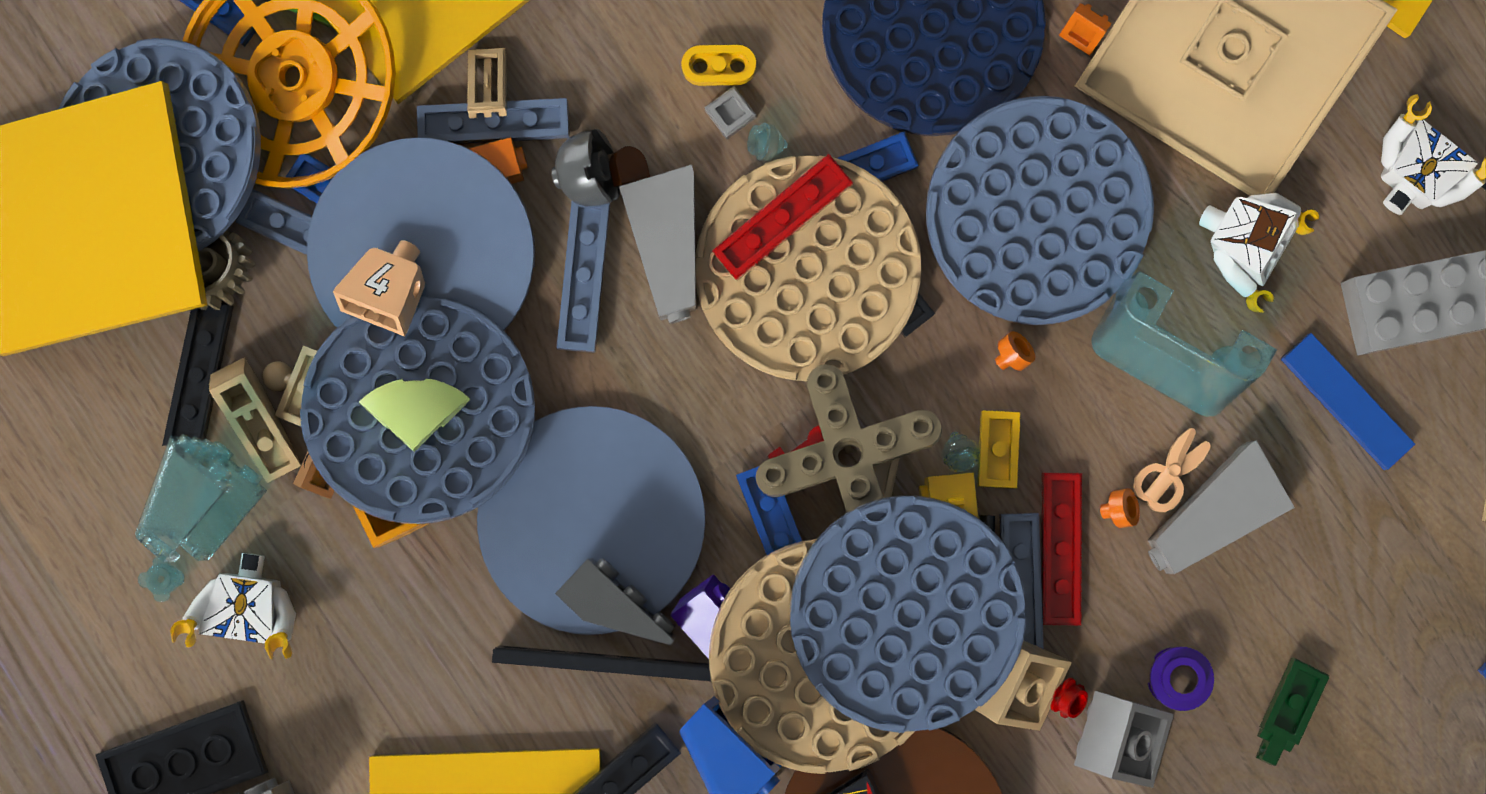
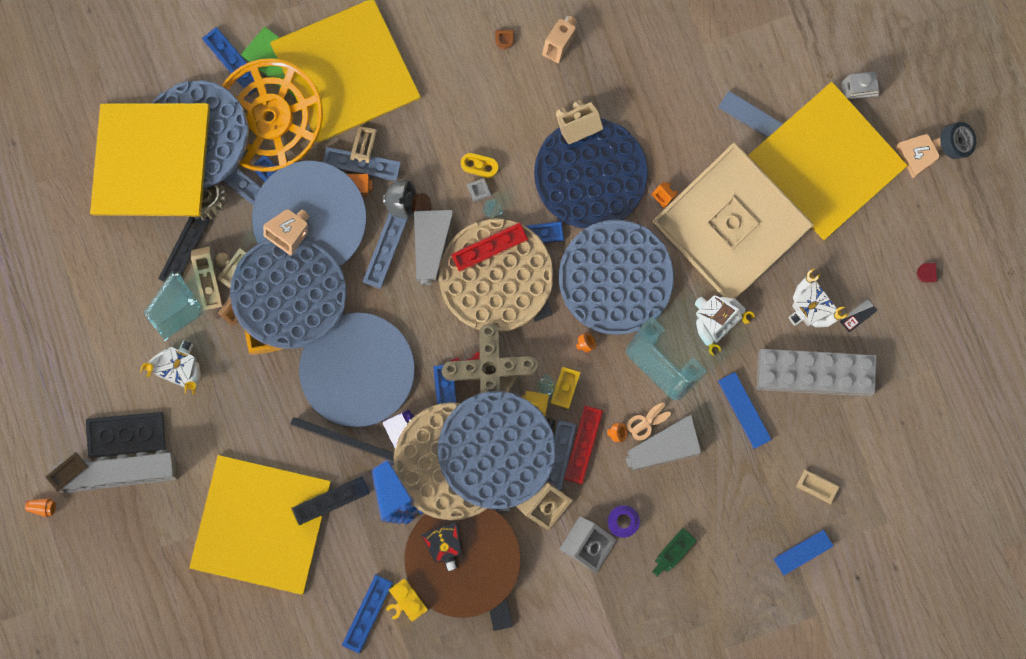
camera: 15 degrees right, 5 degrees down
(172, 579) = (145, 343): clear light blue plate -> none
(414, 408) = (287, 290): yellowish green brick -> none
(605, 602) = (352, 408): dark grey slope -> none
(1069, 699) = (566, 518): red plate -> none

